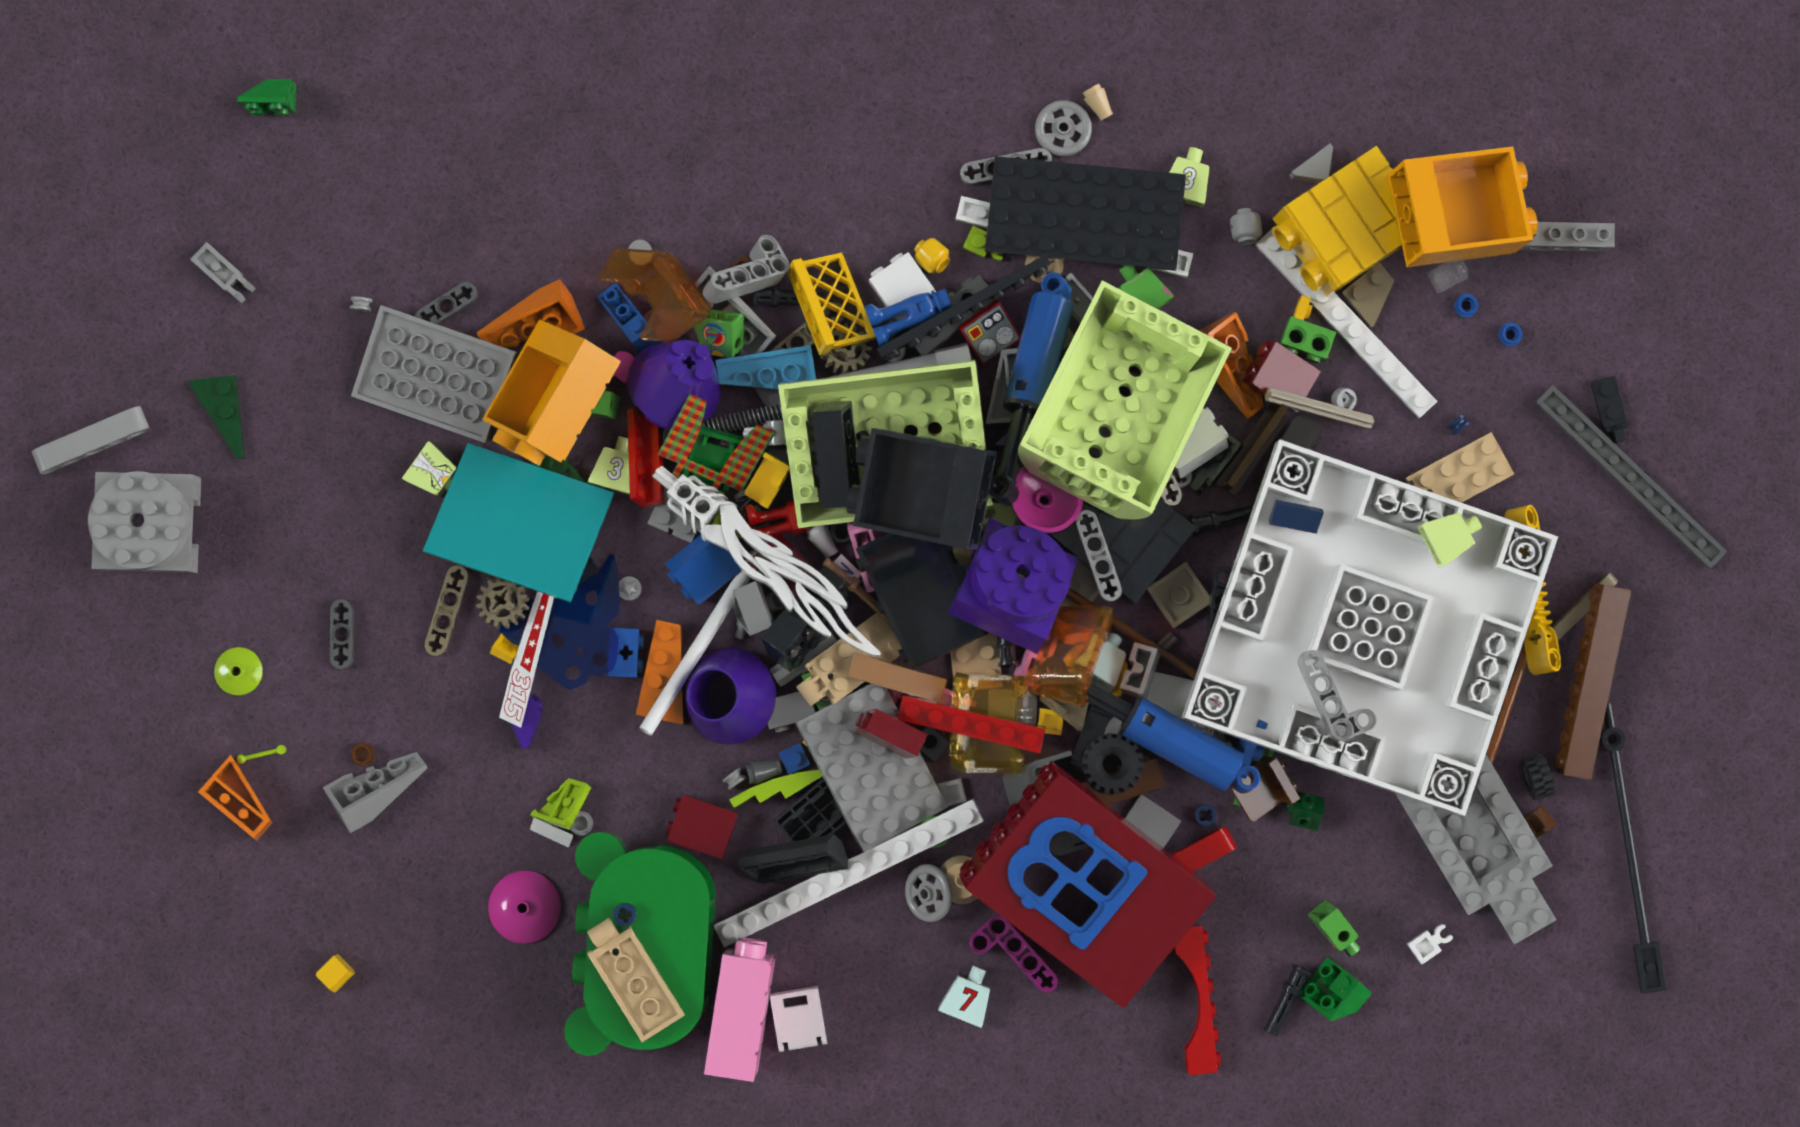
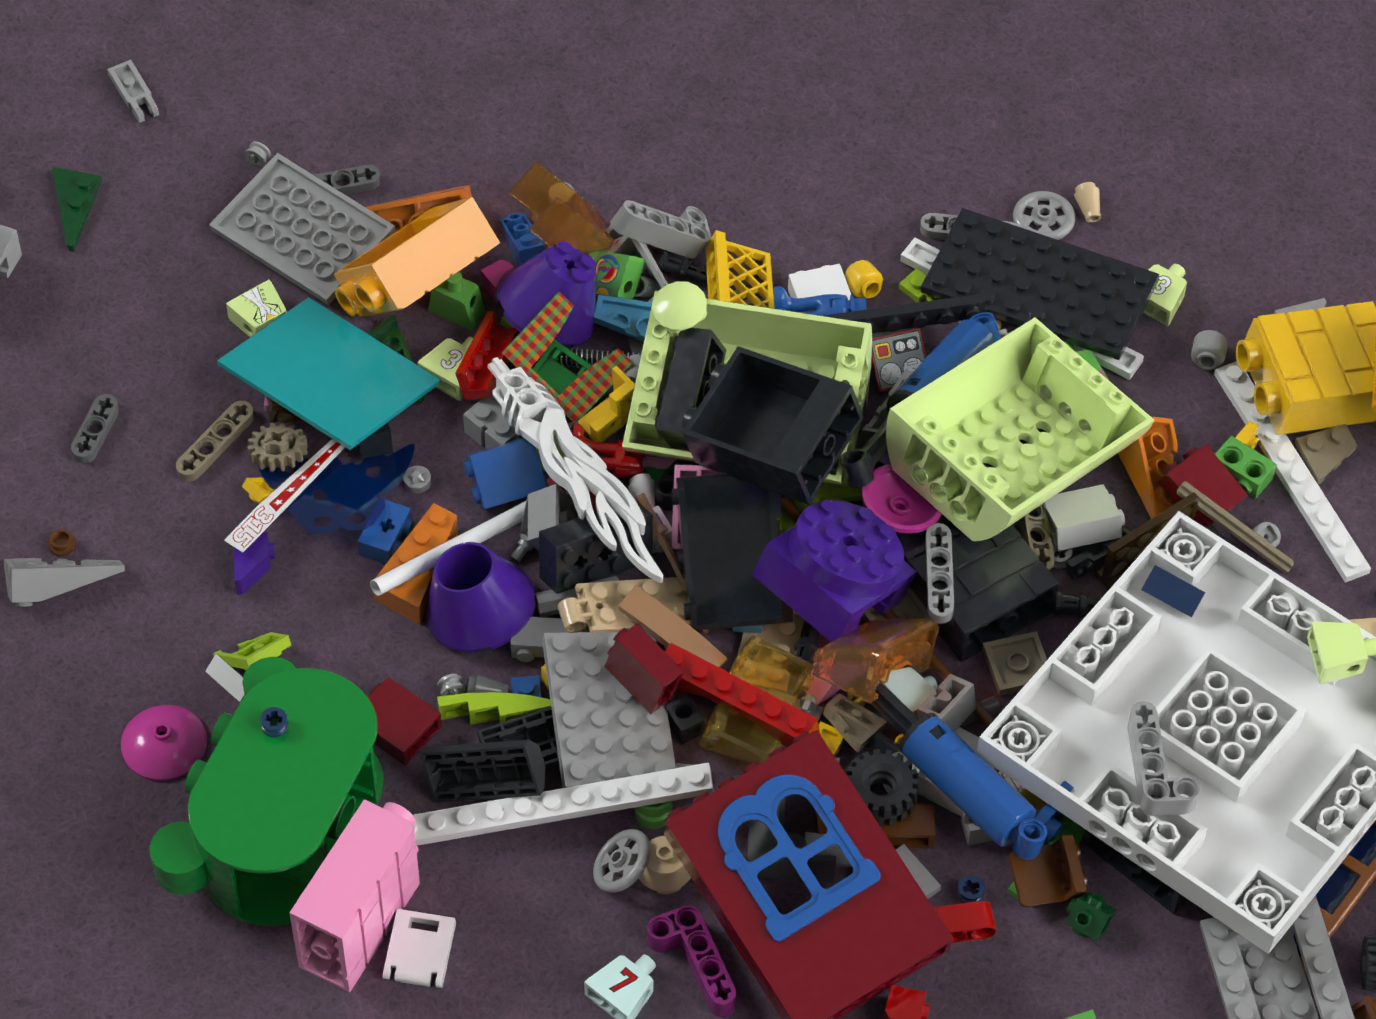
camera: 20 degrees right, 30 degrees down
(633, 979) = (254, 786): tan hinge -> none
(806, 397) = (679, 306): none -> yellowish green dish

